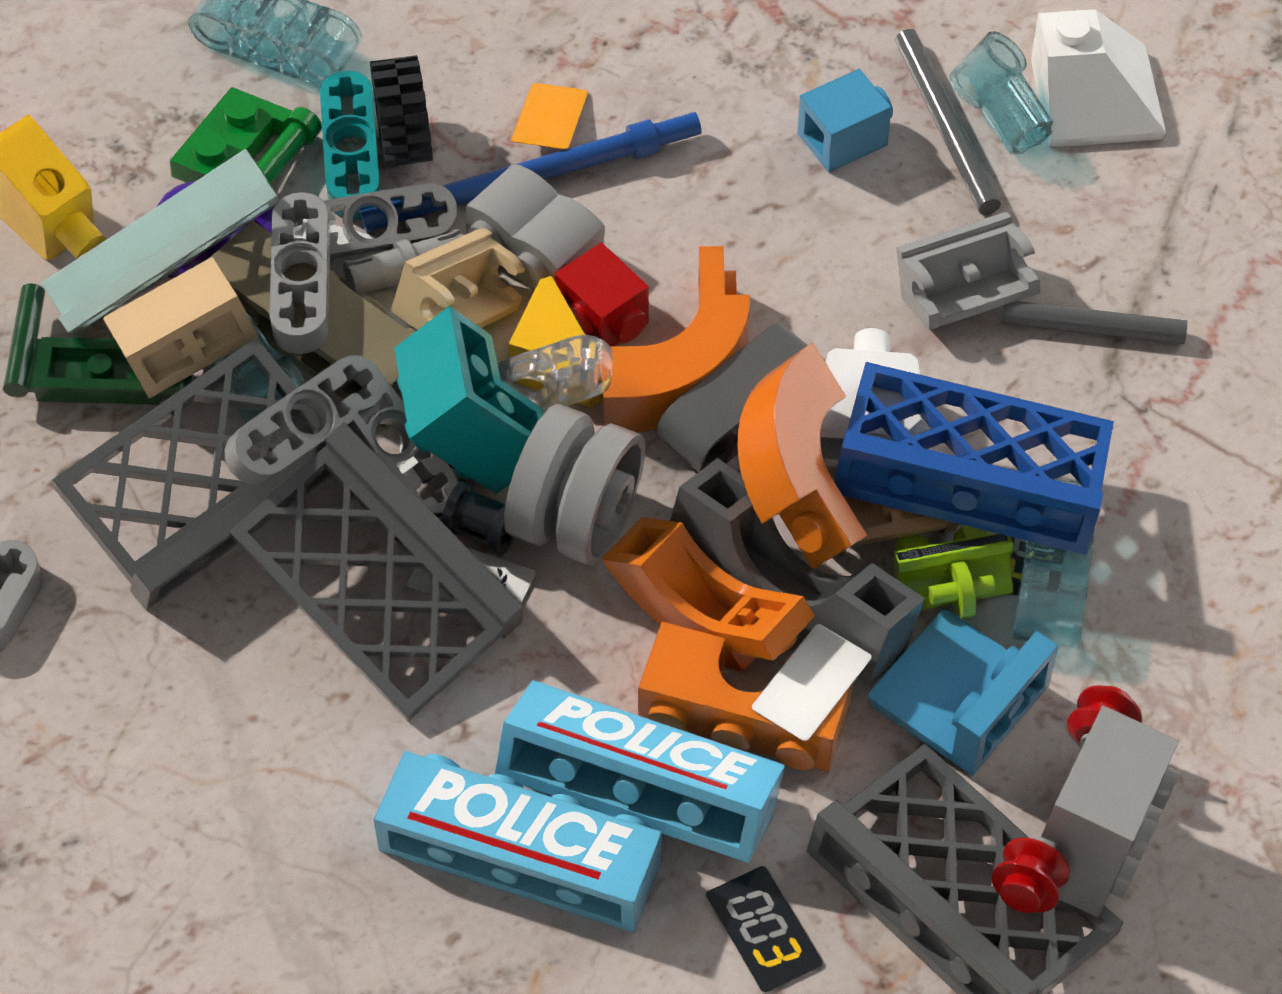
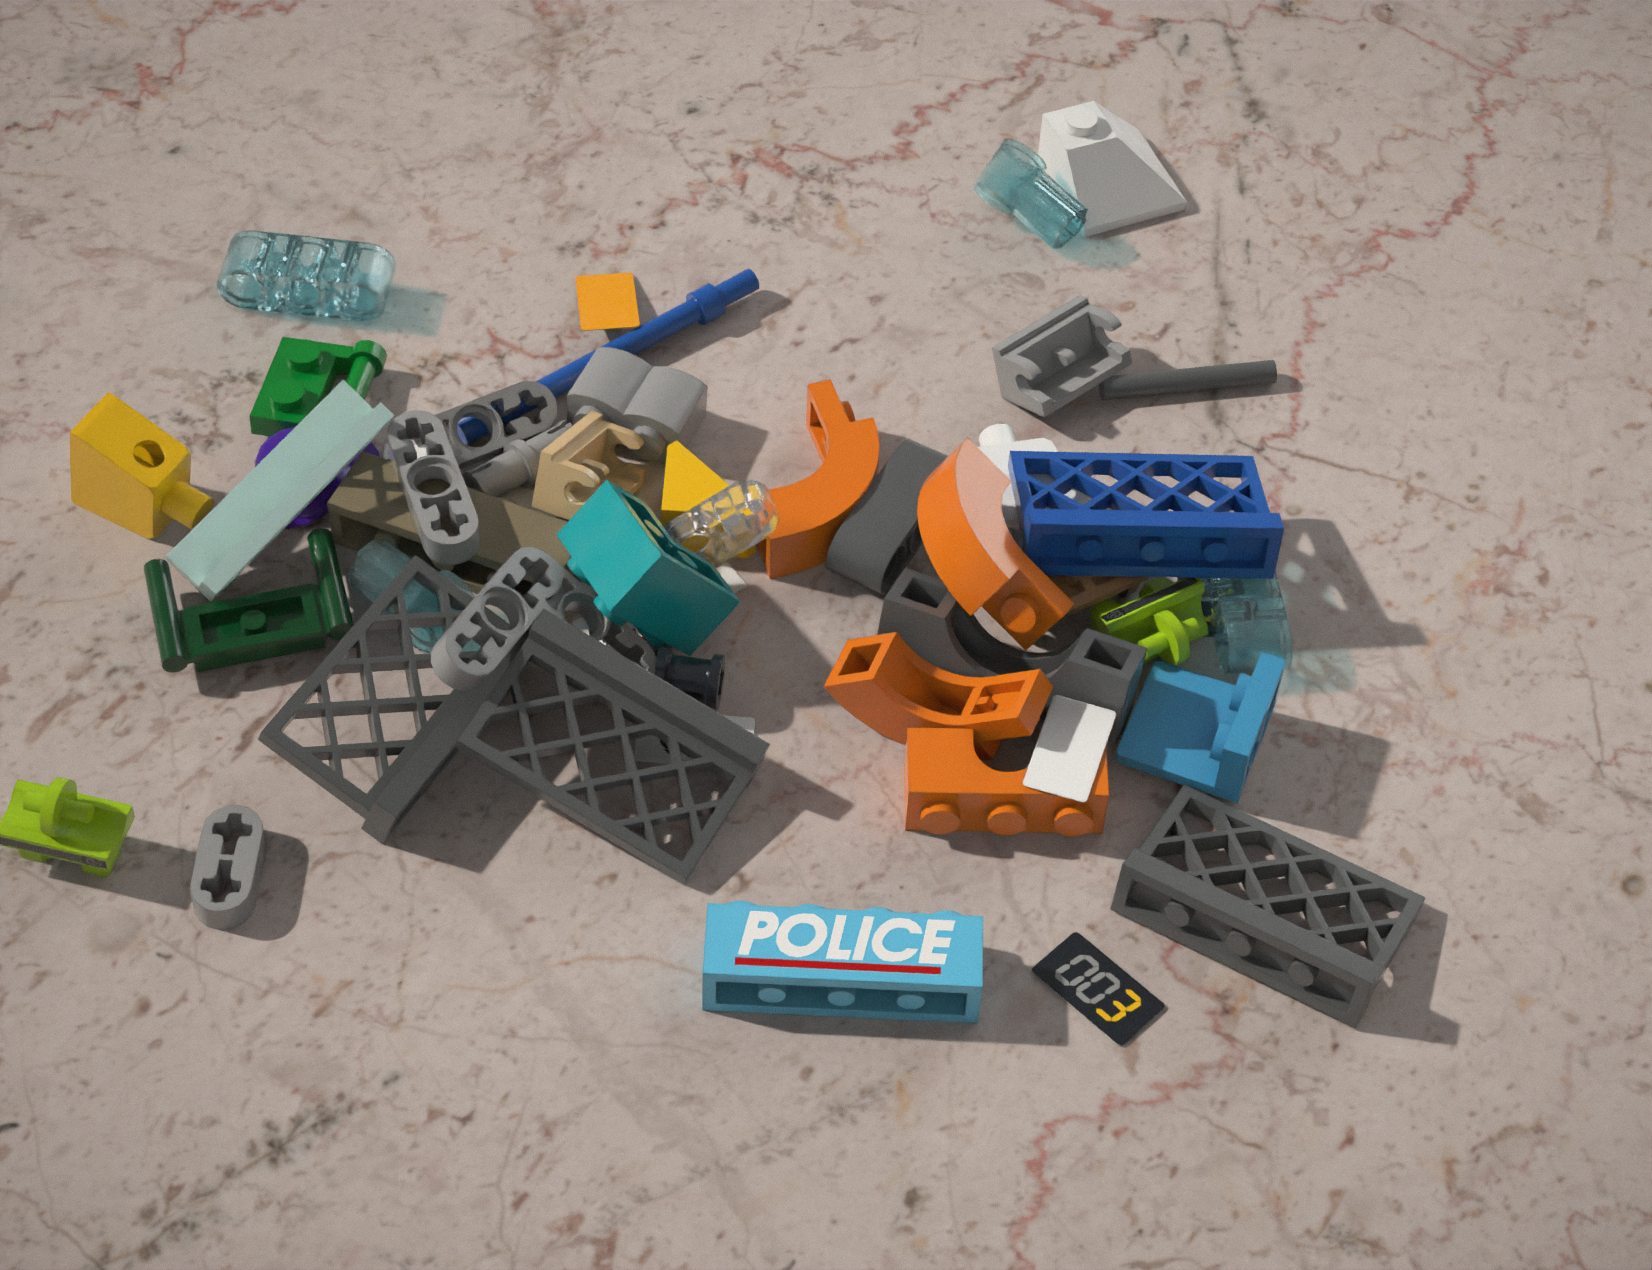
camera: 20 degrees left, 5 degrees down
(181, 327) = (333, 562): tan hinge -> none
(338, 126) = (422, 346): teal beam -> none
(401, 111) = (469, 321): black tyre -> none
(574, 485) = (777, 623): light grey wheel -> none
(605, 296) = (732, 444): red brick -> none
(640, 770) = (937, 866): medium azure brick -> none
(844, 119) = (892, 247): dark azure brick -> none
(948, 122) = (985, 232): dark grey bar -> none
(1100, 814) = (1376, 796): light grey brick -> none

